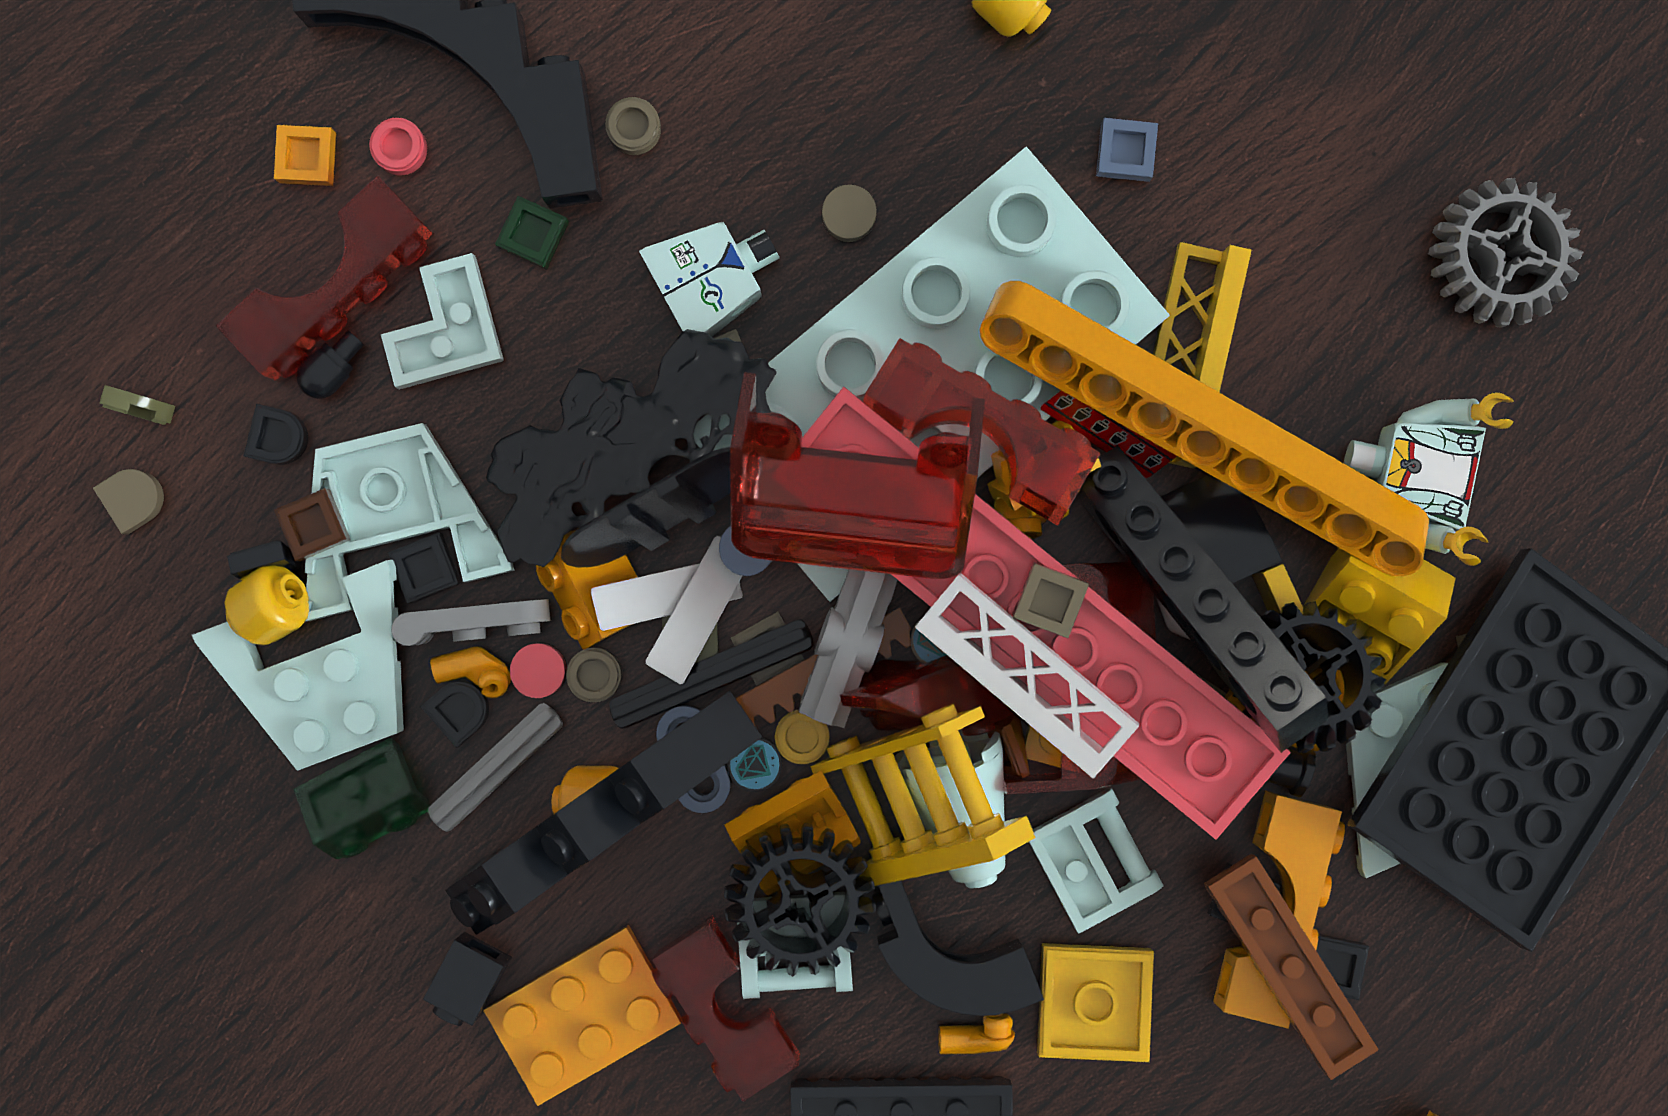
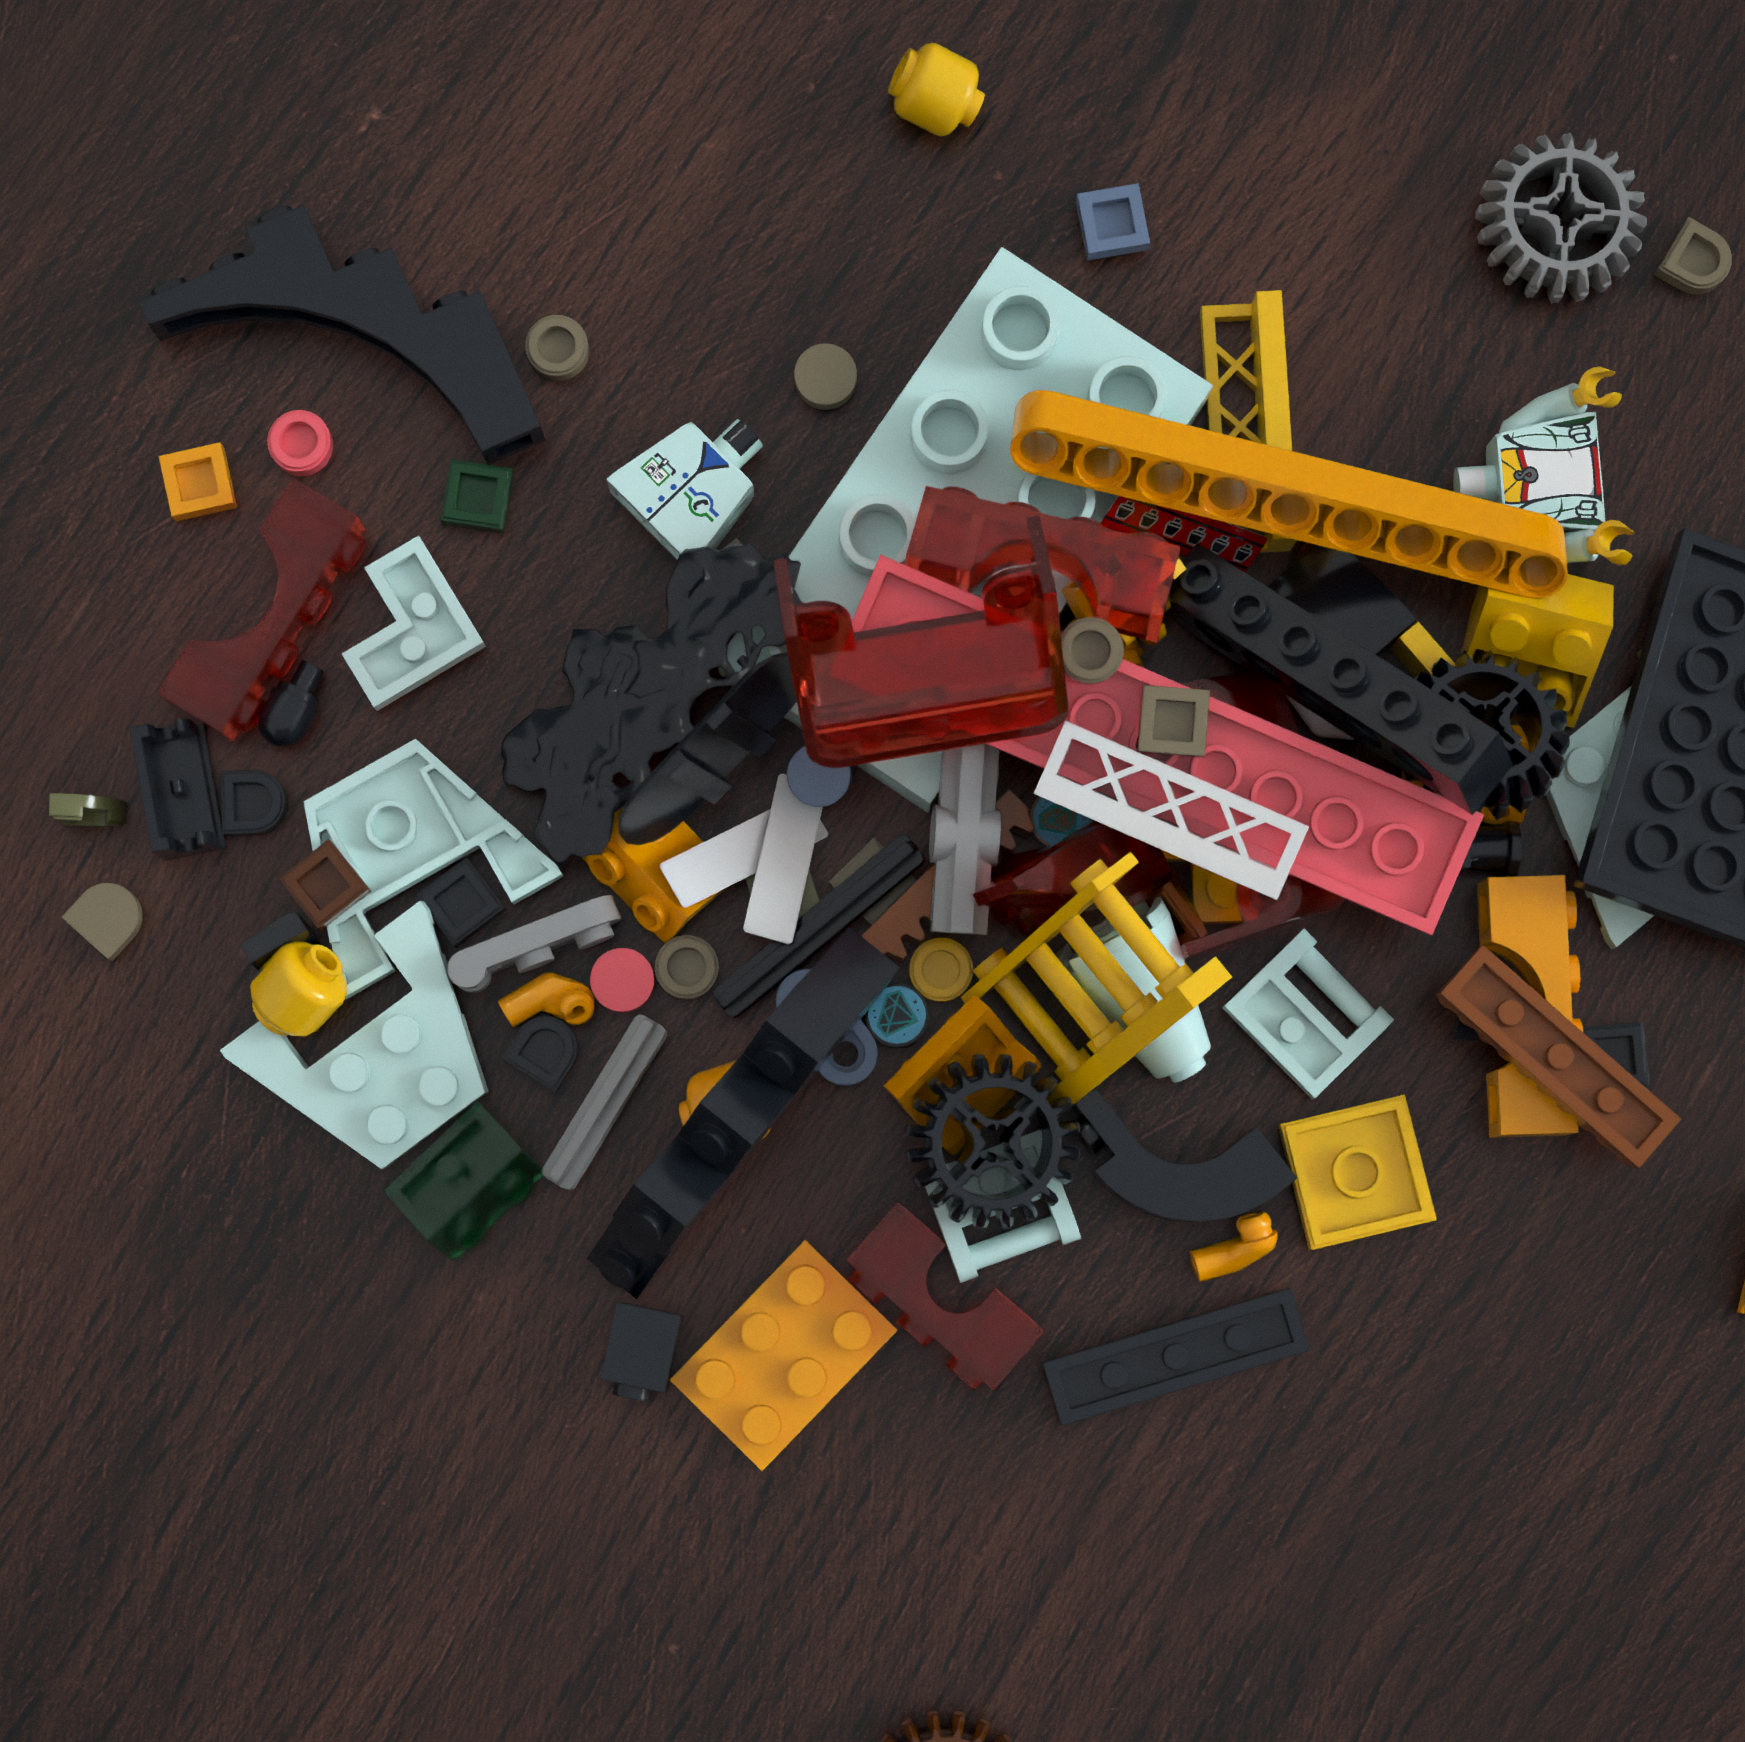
camera: 20 degrees left, 5 degrees down
(215, 408) = (178, 789): none -> black hinge
(998, 520) = (1091, 650): none -> dark tan tile
(1607, 318) = (1696, 259): none -> dark tan tile

